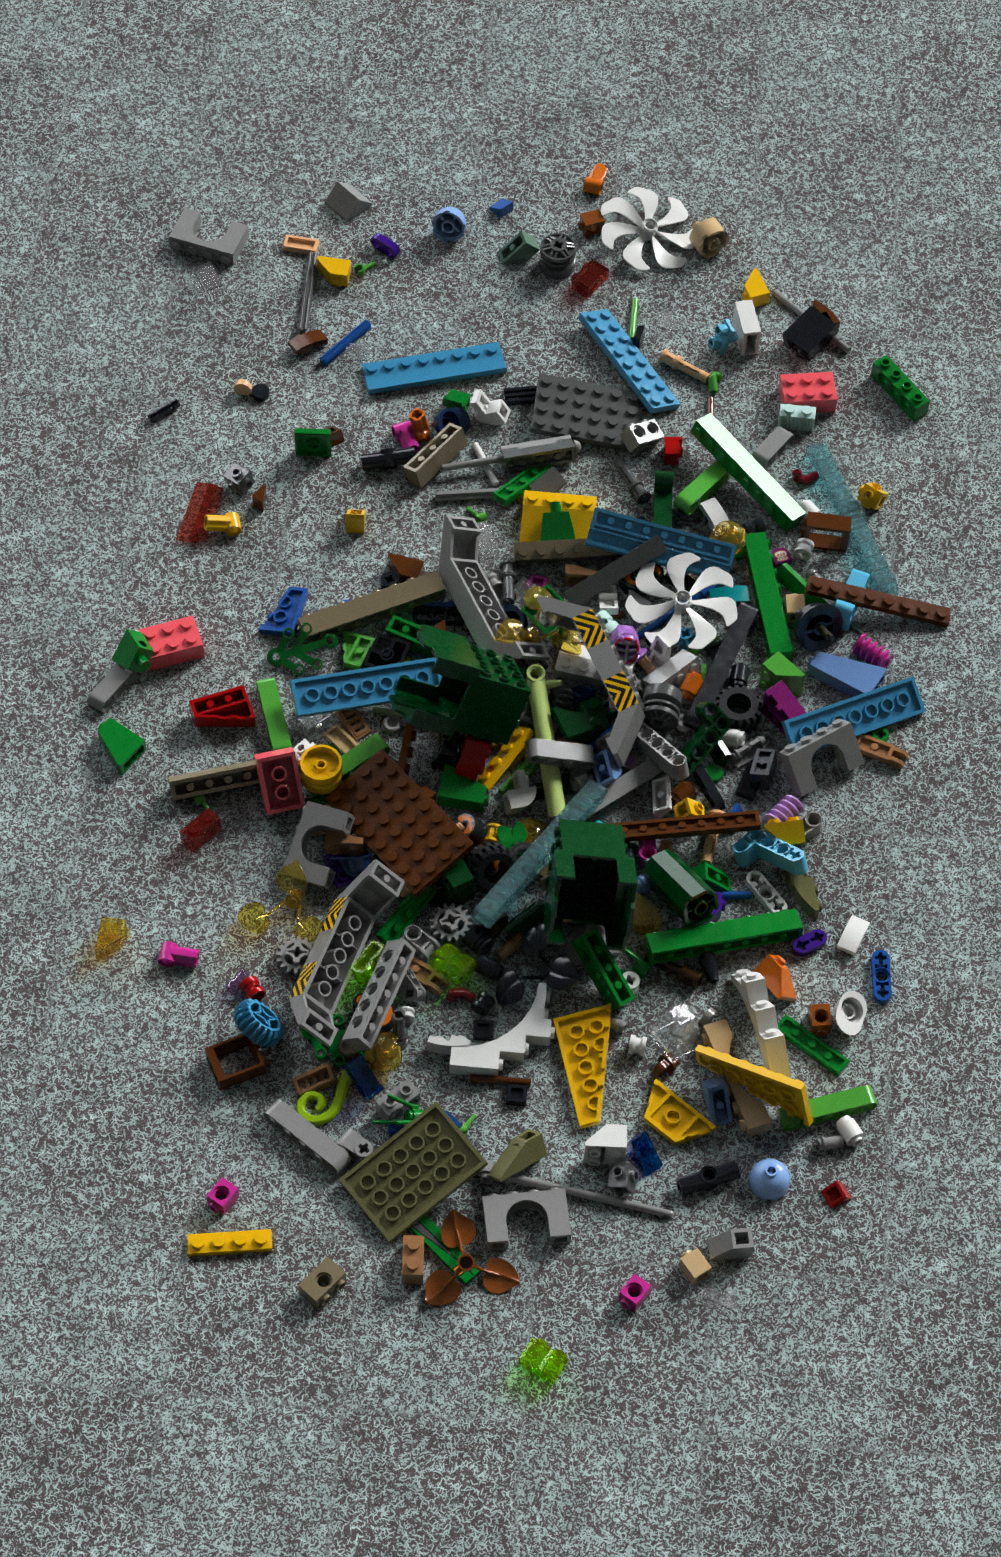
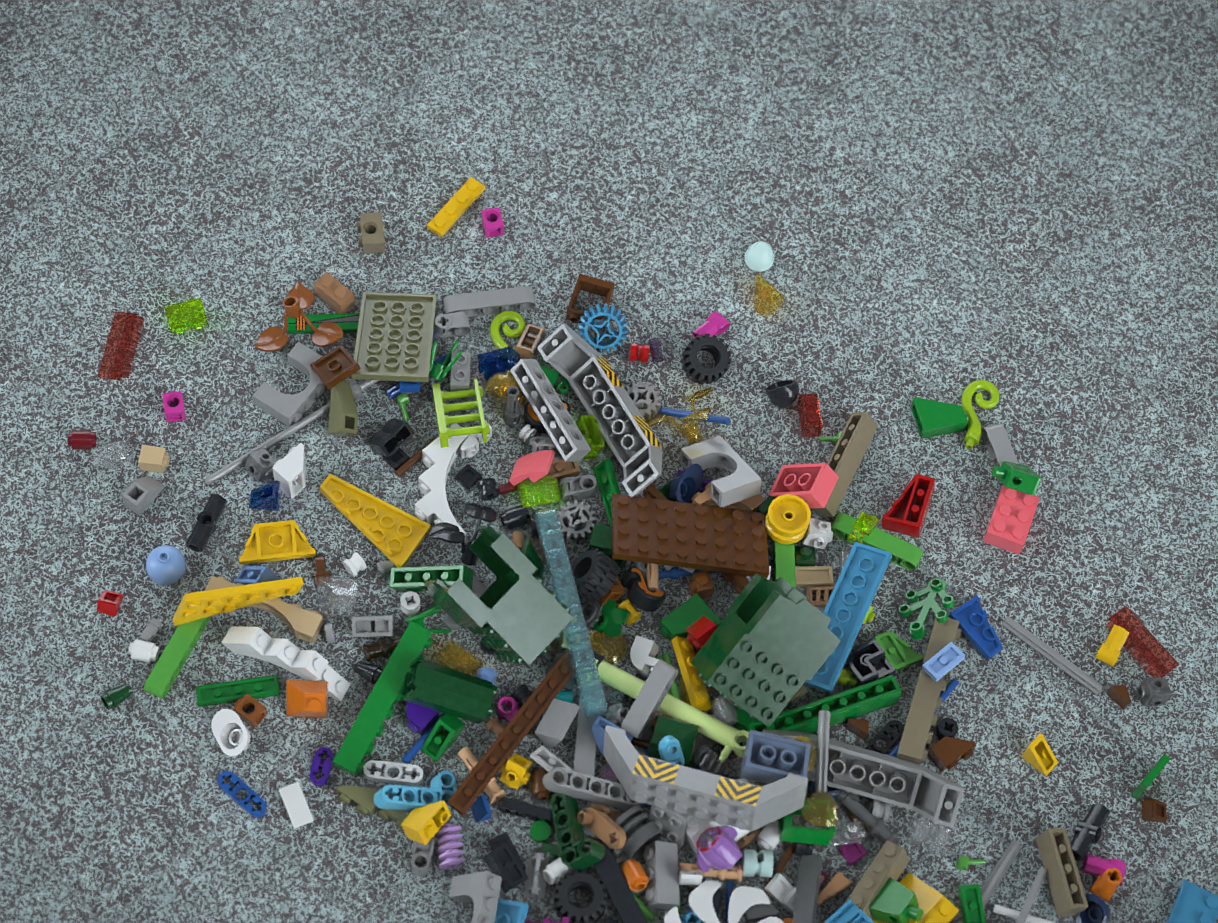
camera: 125 degrees right, 5 degrees up
(69, 971) = (759, 256): none -> light aqua hat
(113, 712) = (974, 426): none -> lime plant
(195, 861) = (783, 393): none -> black hat
(217, 931) = (713, 346): none -> black tyre
(264, 558) = (1052, 655): none -> light grey axle
(274, 721) = (863, 526): none -> clear neon green plate
(281, 903) = (682, 413): none -> blue bar
(346, 601) = (943, 661): none -> light blue plate
(439, 977) = (532, 466): none -> coral slope
(460, 1068) = (444, 420): none -> lime fence
(490, 1183) = (335, 367): none -> reddish brown tile
(494, 622) = (822, 751): none -> light grey axle
(506, 1104) = (391, 437): none -> black brick
(536, 635) = (773, 757): none -> sand blue slope
(589, 708) = (671, 751): none -> medium azure plate
(624, 1392) = (120, 346): none -> clear red windscreen
(629, 805) = (556, 722): none -> light grey slope
(674, 986) = (373, 625): none -> light grey brick
(677, 731) = (601, 822): none -> medium nougat piece
(731, 1337) = (82, 439): none -> dark red brick
(900, 1120) = (115, 696): none -> dark green cone

